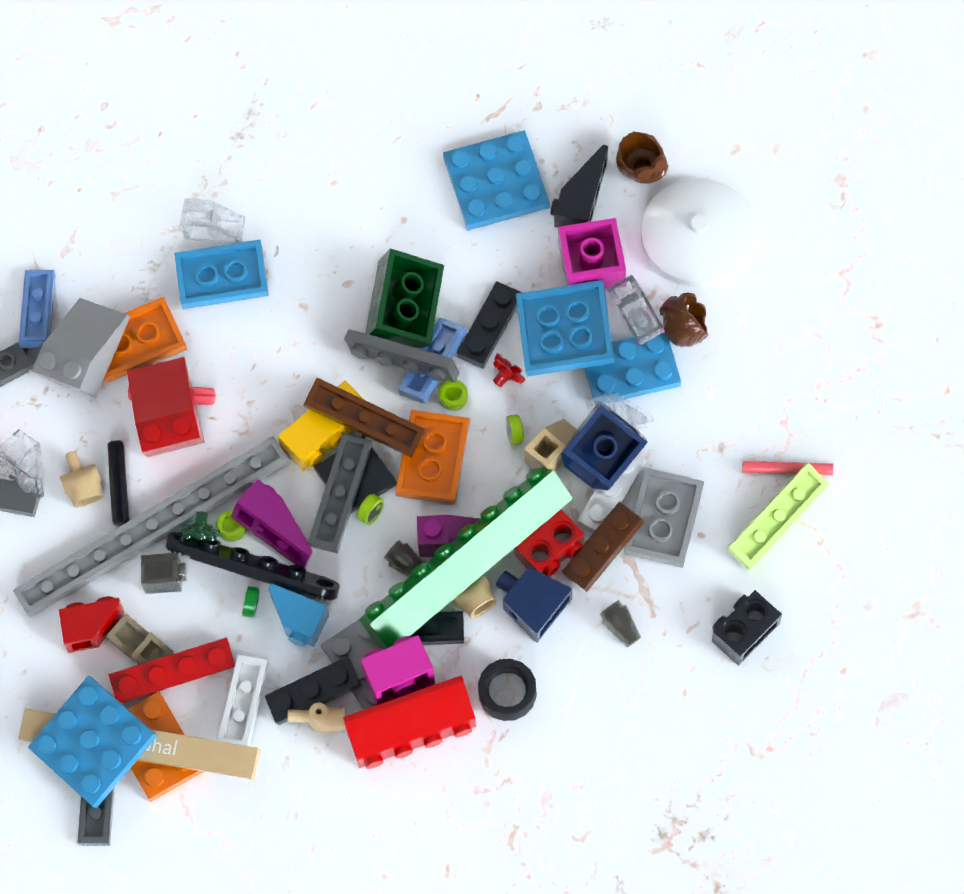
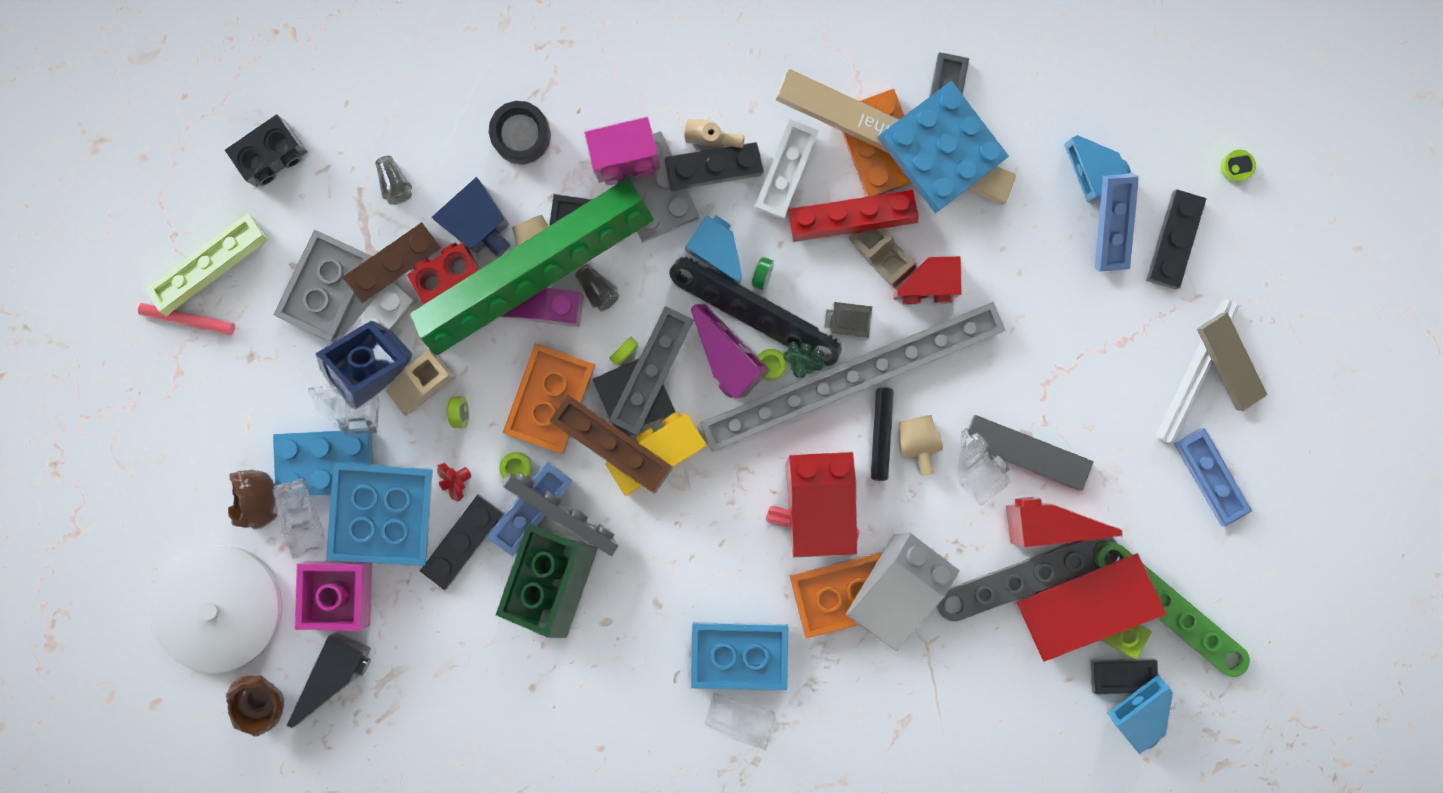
camera: 175 degrees left, 20 degrees up
(36, 308) = (944, 652): medium blue tile -> none
(410, 722) = (660, 101): slope -> none
(496, 180) = (422, 715): dark azure plate -> none

